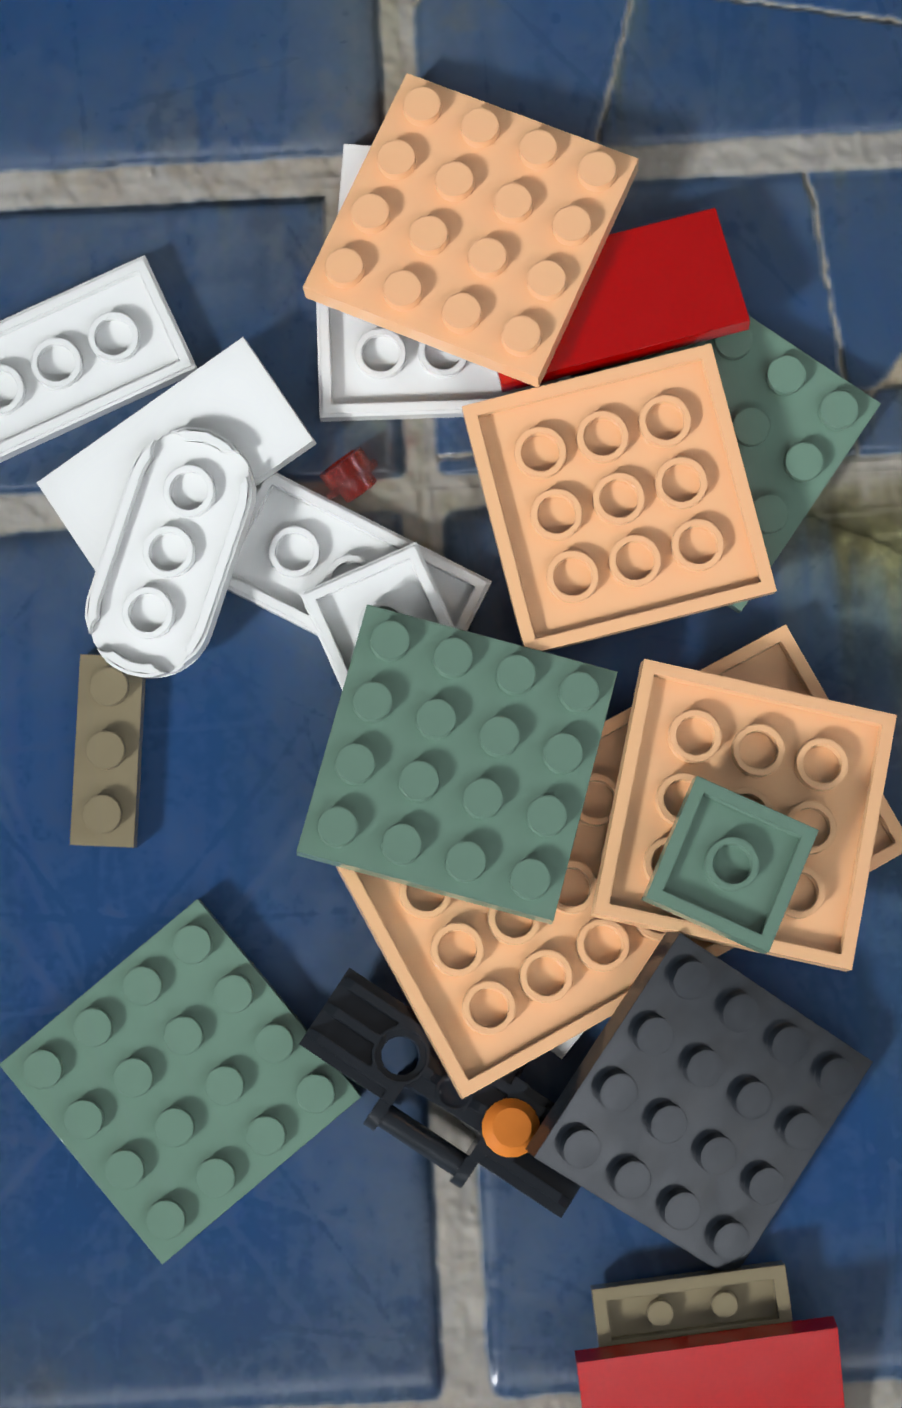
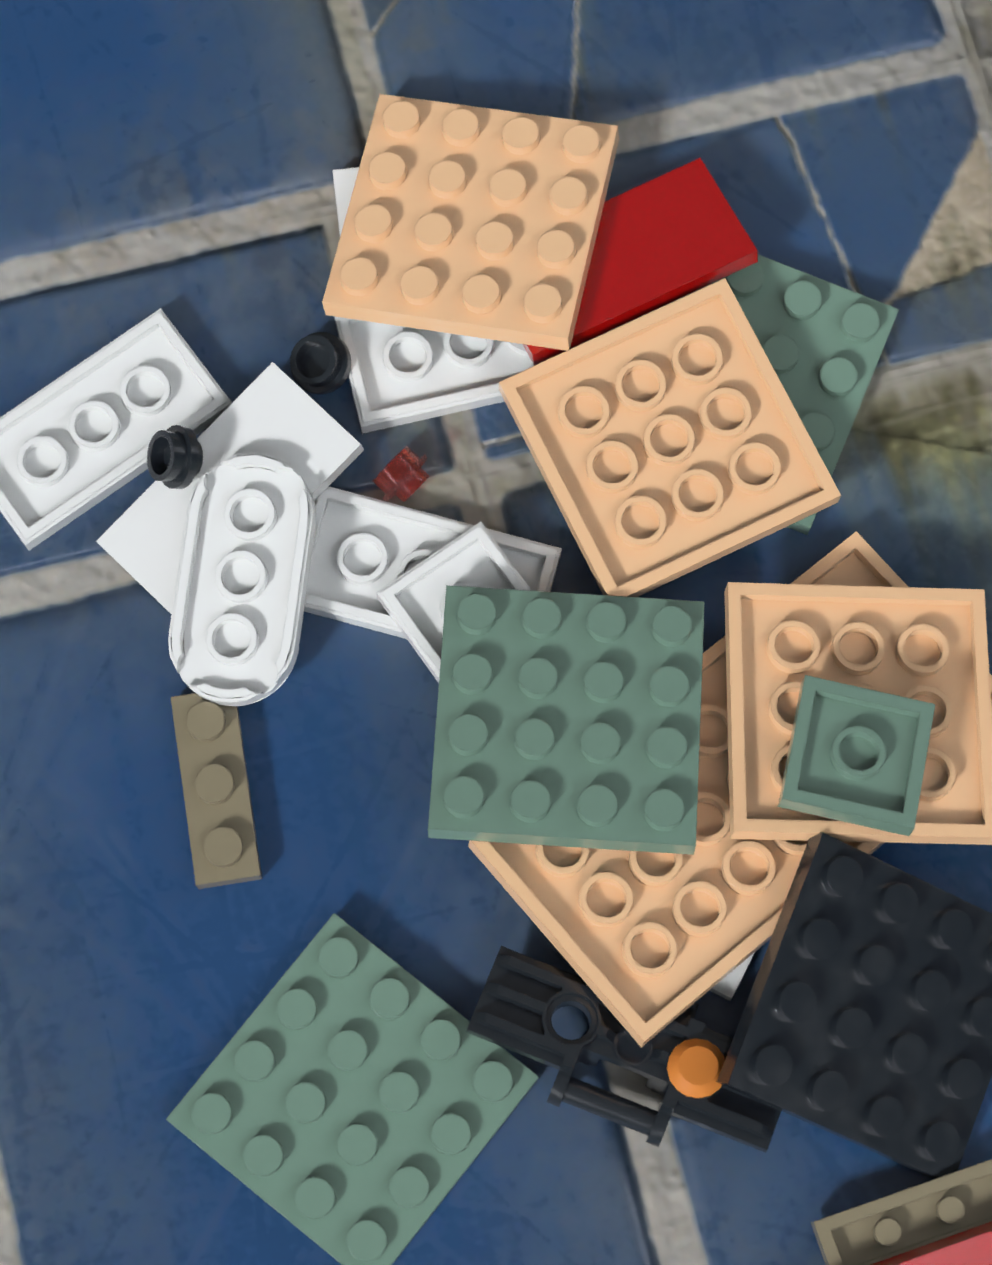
camera: 10 degrees left, 10 degrees down
(126, 417) = (174, 456): none -> black plate
(292, 343) = (320, 363): none -> black plate

